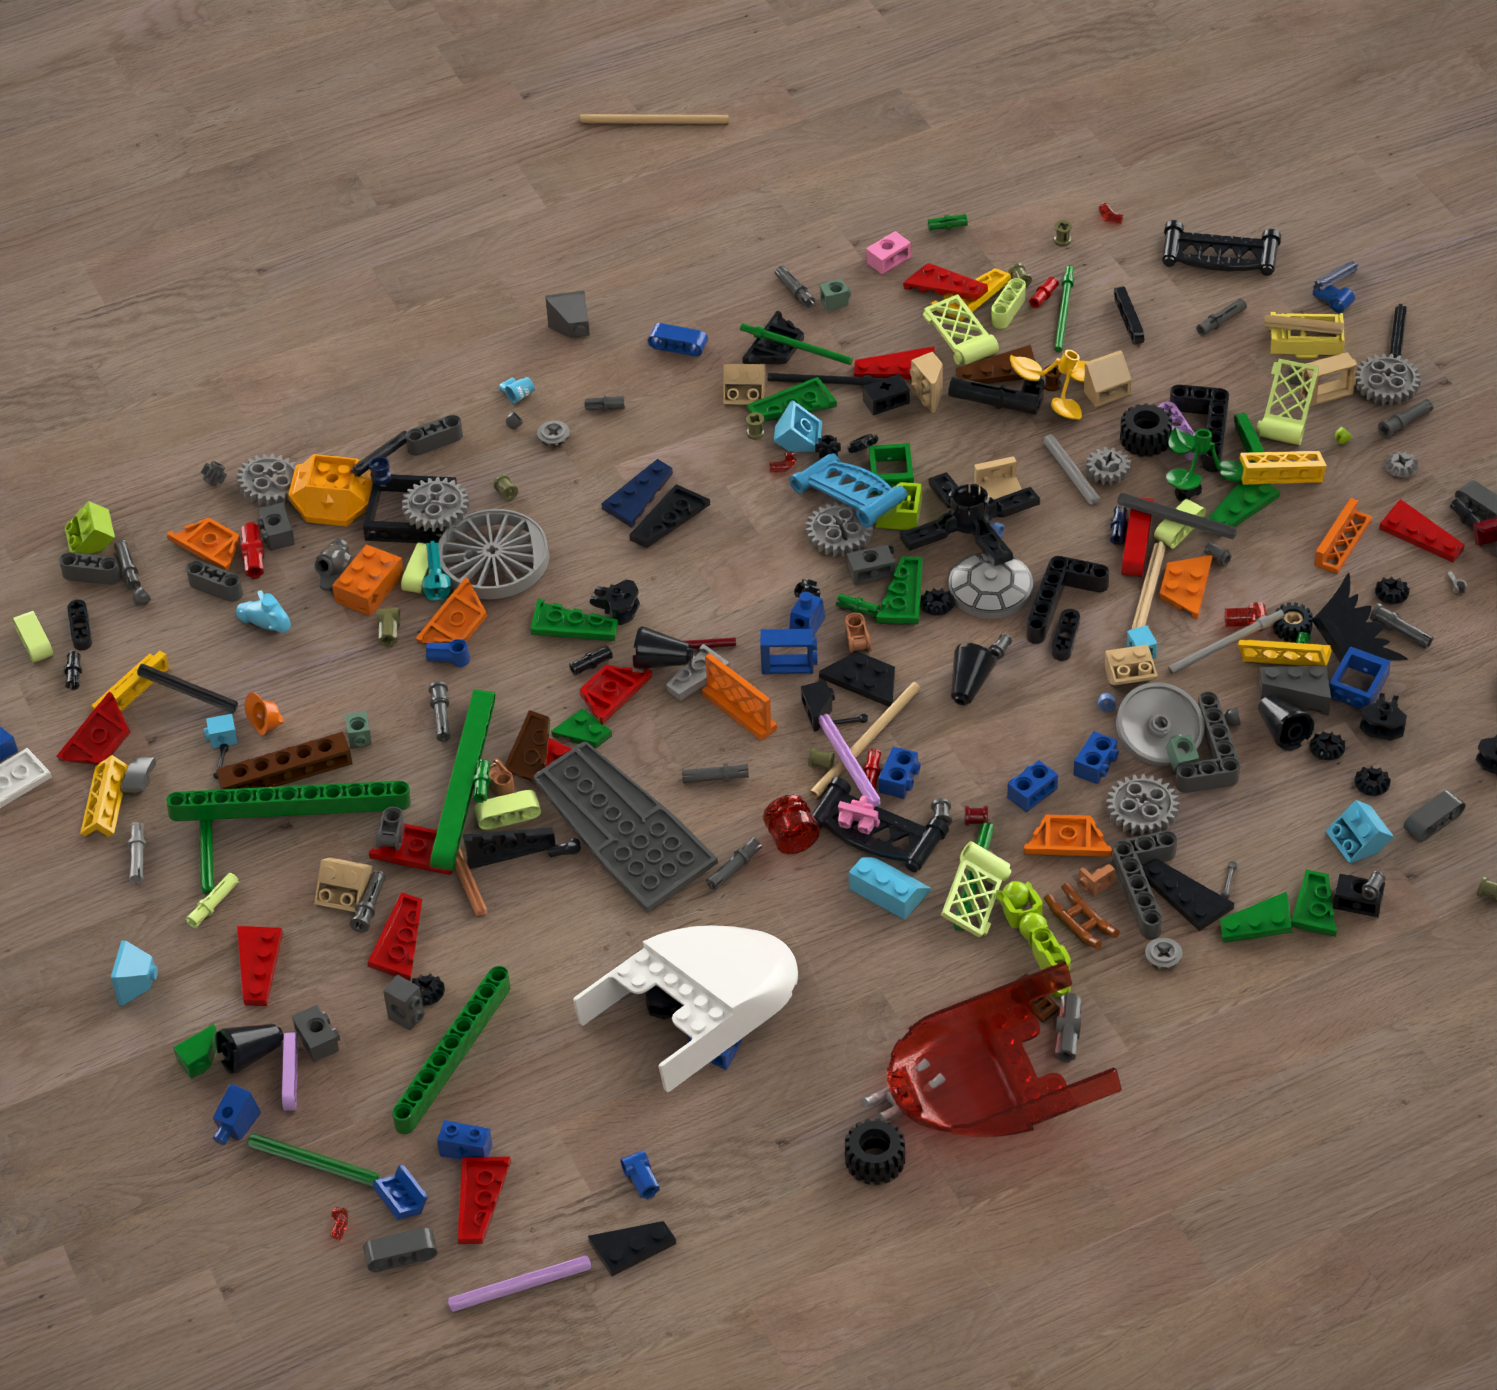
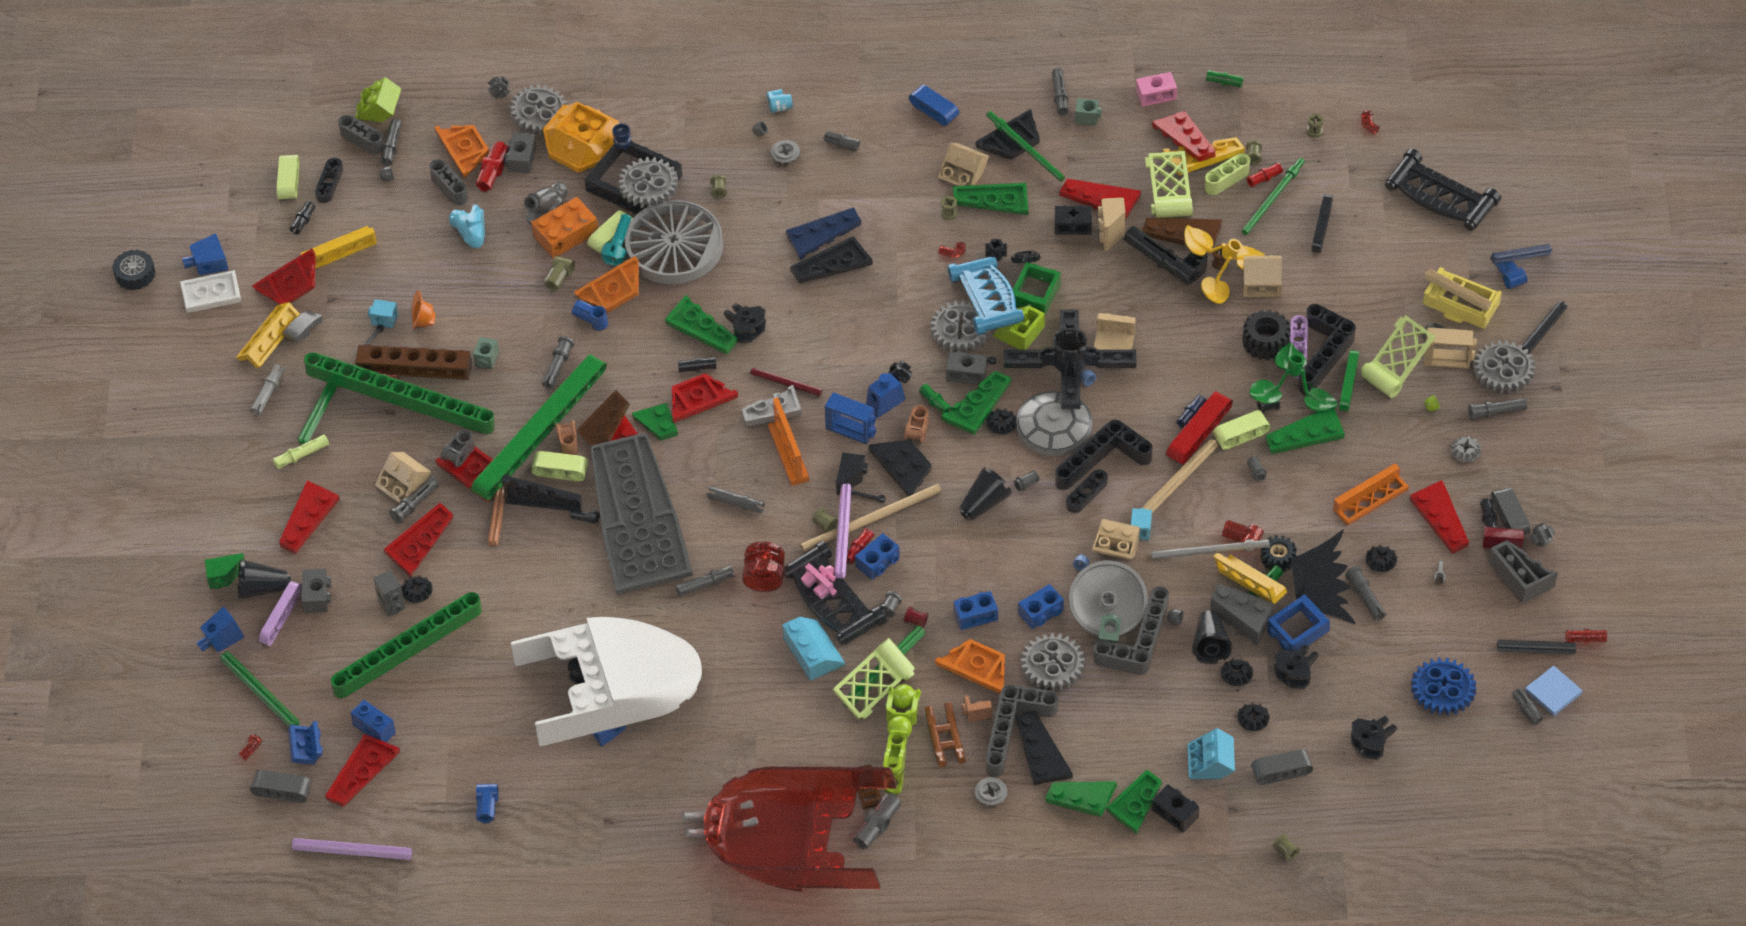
camera: 25 degrees right, 5 degrees up
(132, 973) = (207, 487): medium azure slope -> none
(187, 688) = (376, 267): black axle -> none
(383, 451) = (635, 119): black axle -> none
(434, 435) = (689, 118): dark grey beam -> none
(481, 780) = (548, 434): green pin -> none
(568, 313) = (857, 49): dark grey slope -> none
(631, 1245) = (449, 854): black wing -> none
(659, 650) = (750, 377): black cone -> none
(797, 429) = (981, 224): medium azure slope -> none
(866, 379) = (1064, 200): black bar -> none
(874, 1167) = (670, 871): black tyre -> none
(1071, 469) = (1184, 340): light grey axle -> none
(1108, 466) = (1215, 355): light grey gear -> none
(1177, 516) = (1241, 426): dark grey axle -> none
(1186, 583) = (1214, 485): orange wing -> none
(1215, 320) = (1402, 254): dark grey pin -> none
(1232, 865) = (1094, 742): dark grey hinge -> none
(1282, 470) = (1356, 416): yellow fence -> none
(1371, 888) = (1179, 808): dark grey pin -> none

